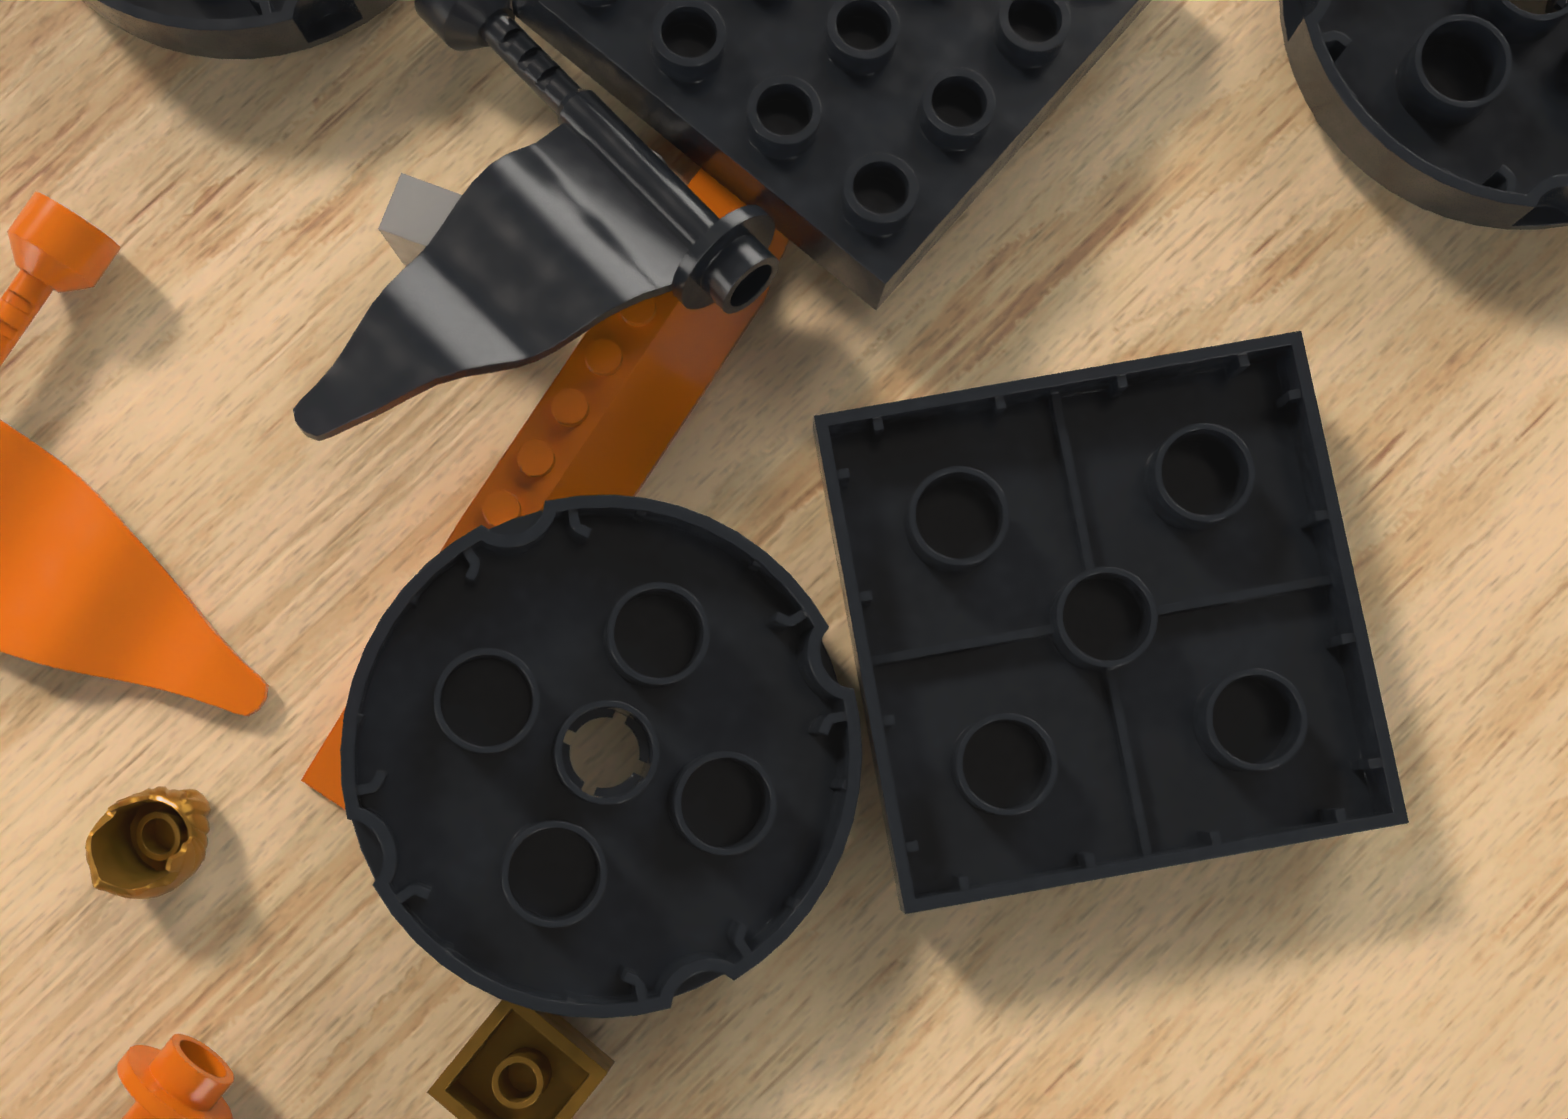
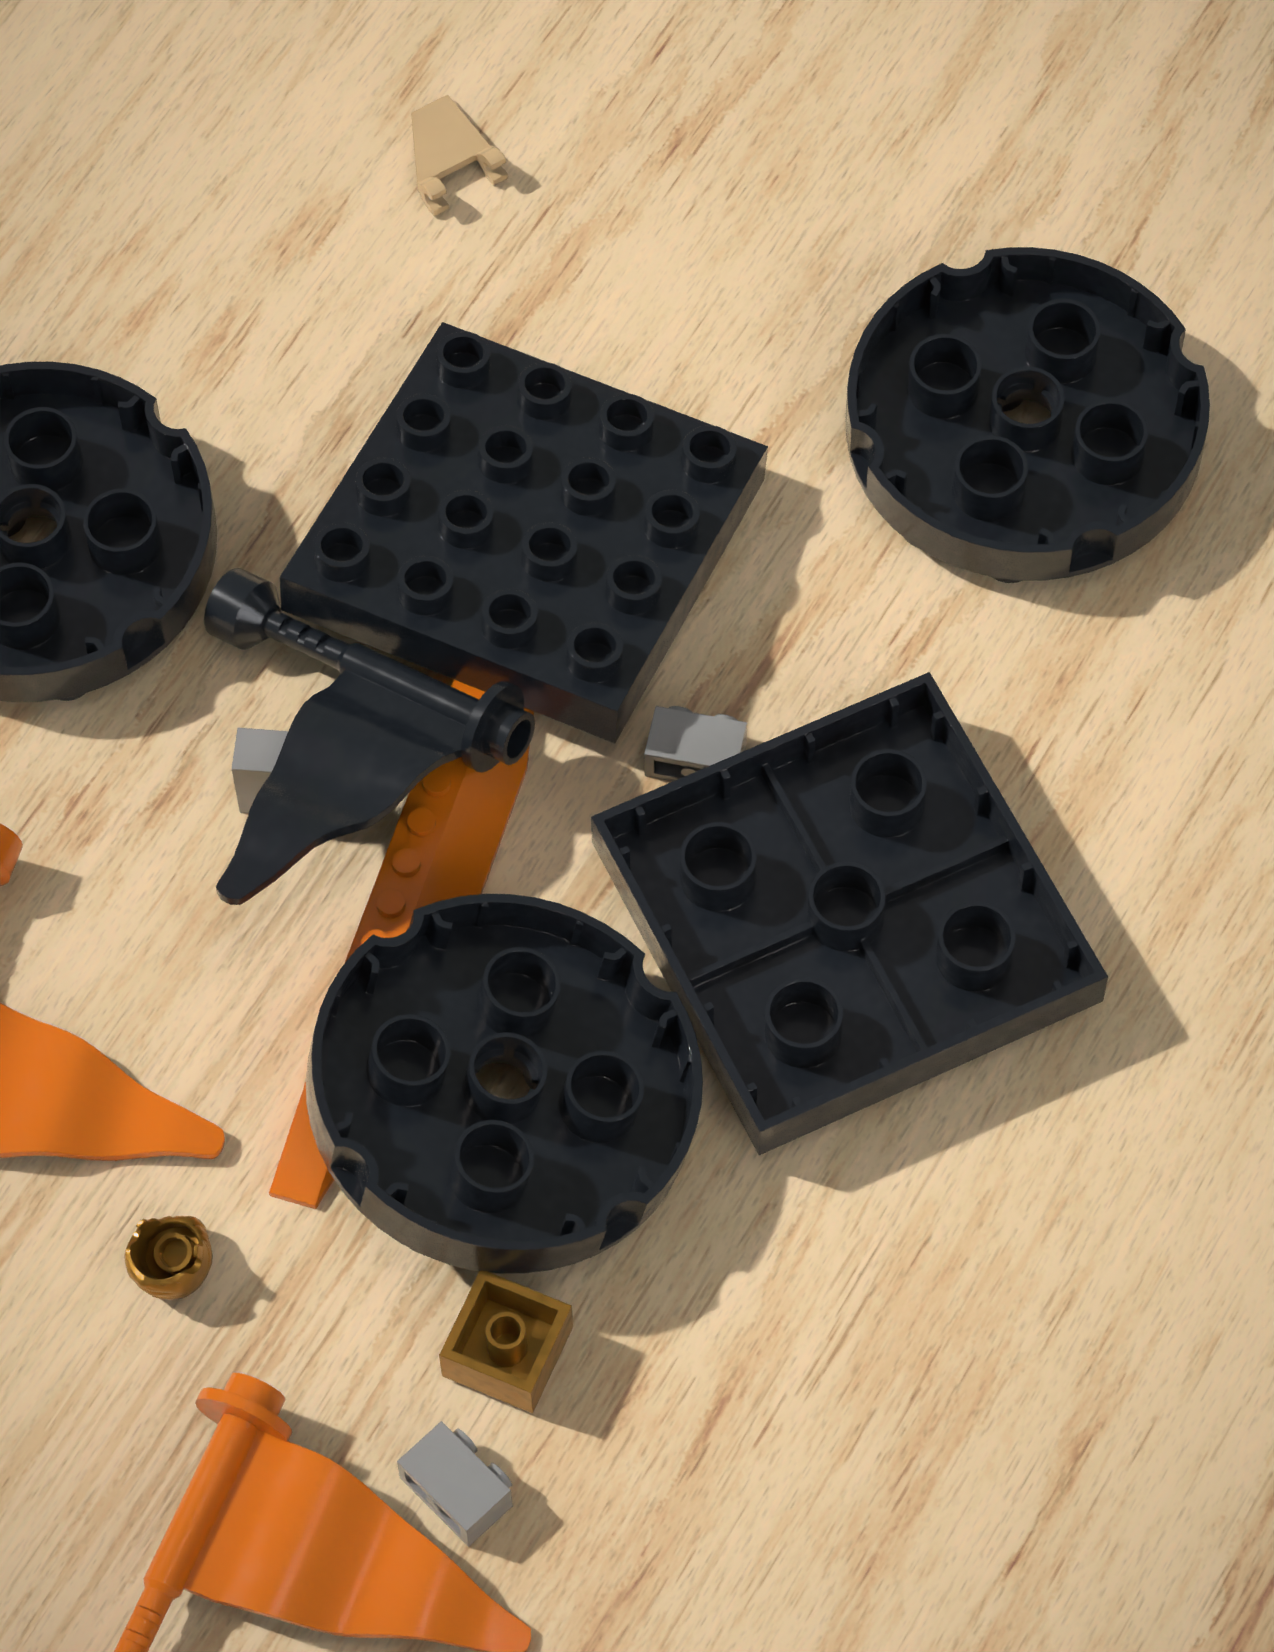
camera: 15 degrees left, 20 degrees down
(975, 333) = (690, 741): none -> light grey brick

